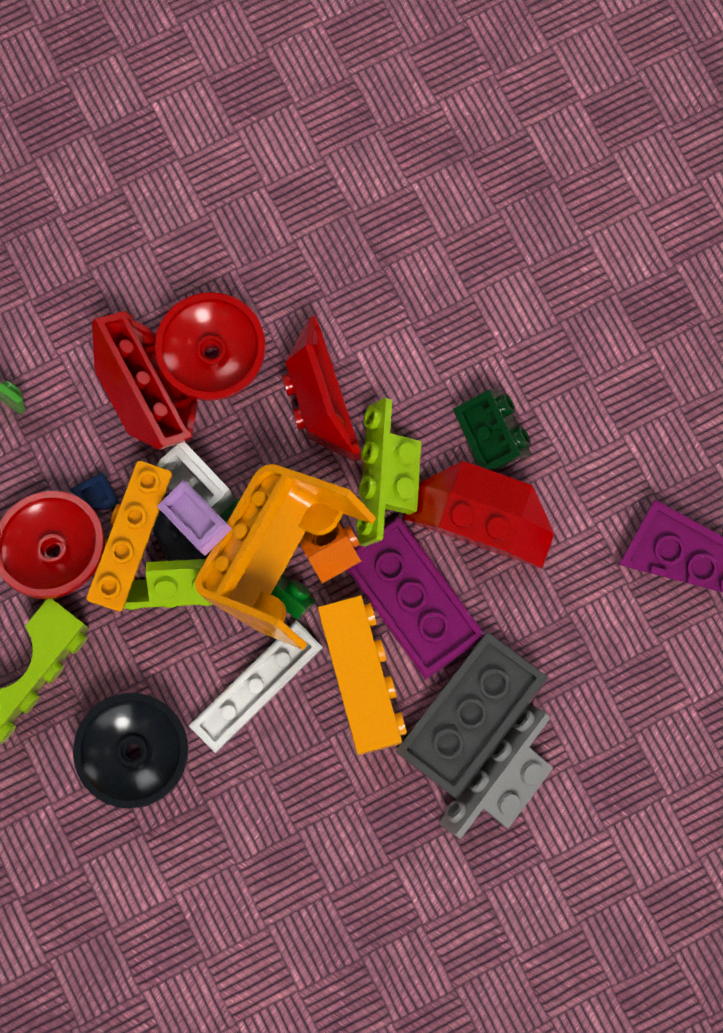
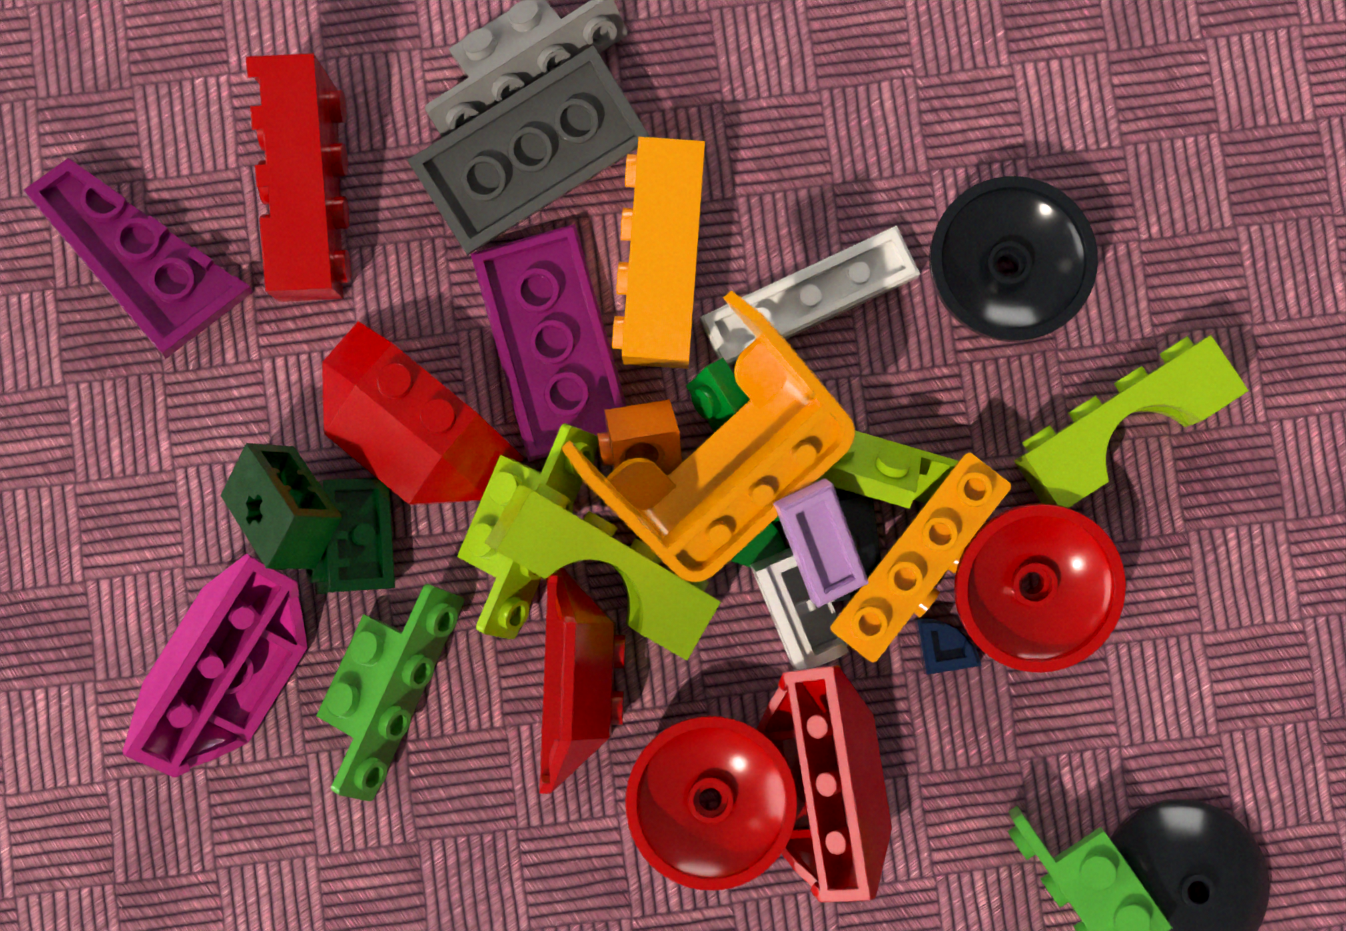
camera: 155 degrees left, 5 degrees up
(366, 463) = (546, 537): none -> lime arch
(438, 348) = (382, 685): none -> bright green bracket
(539, 428) = (280, 506): none -> dark green brick
(540, 321) = (219, 669): none -> dark pink wedge
(610, 639) = (300, 177): none -> red wedge

